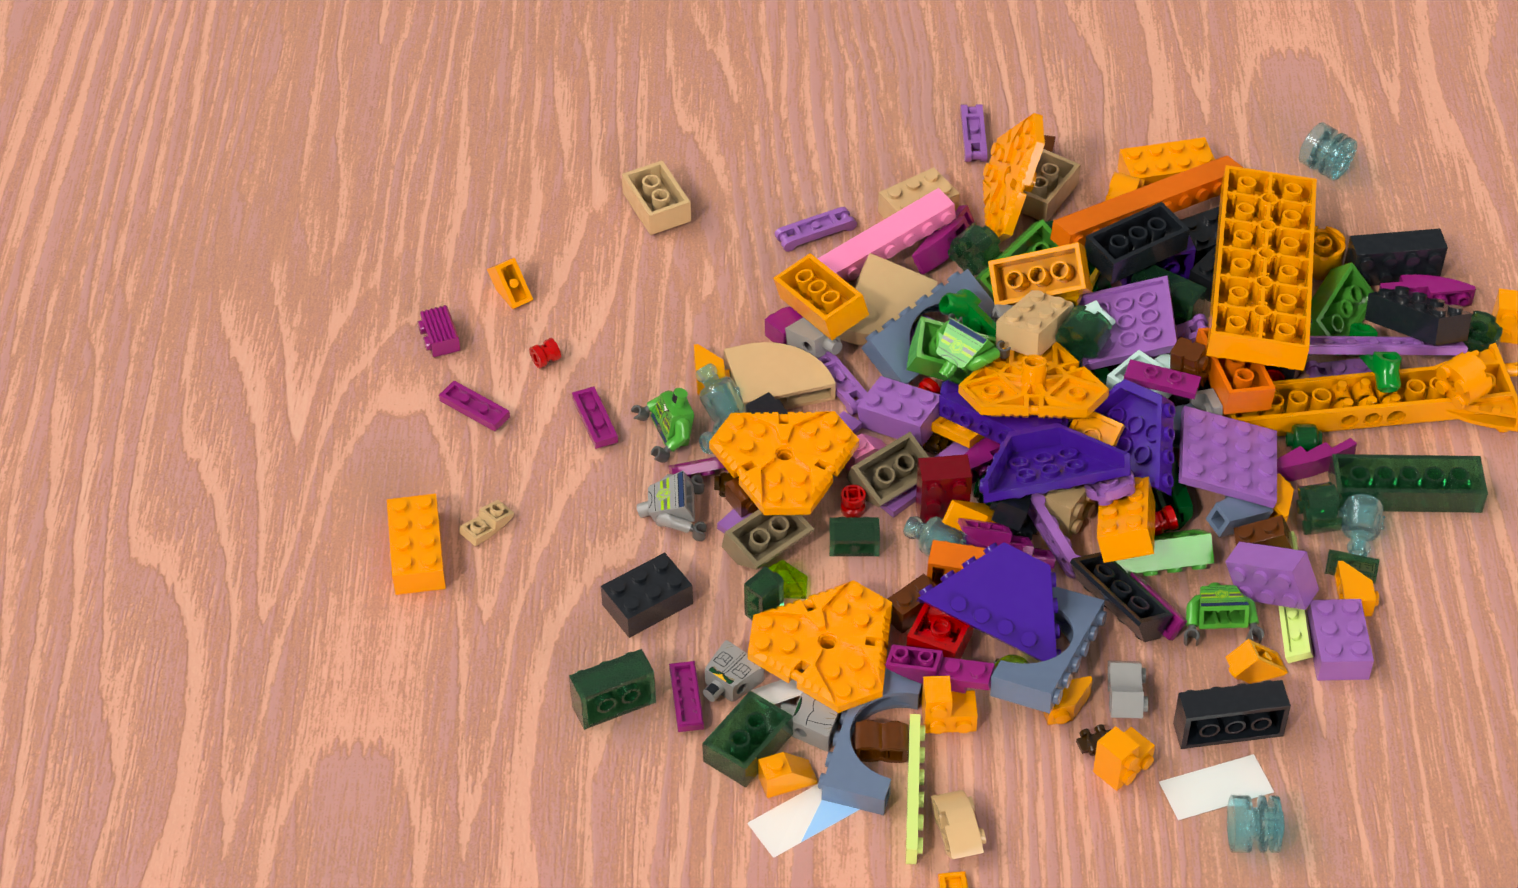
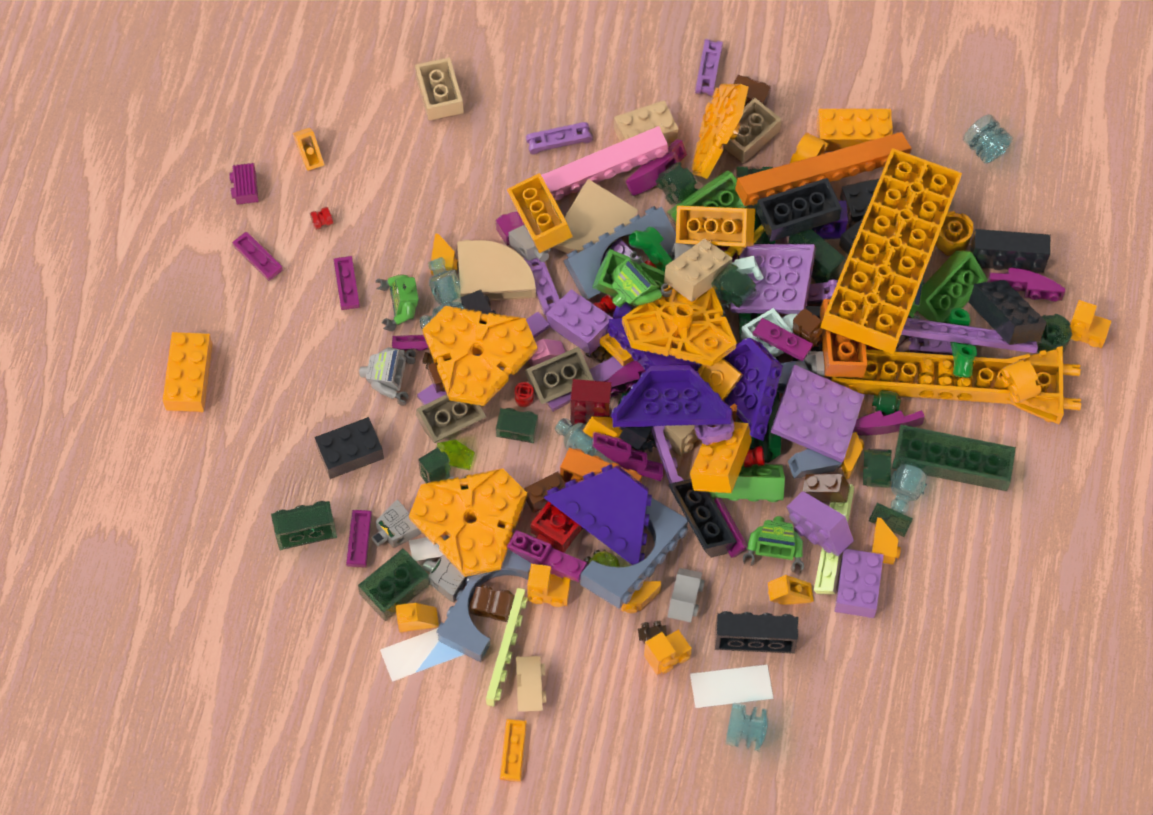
camera: 10 degrees right, 15 degrees up
(489, 522) = (246, 361): tan slope -> none

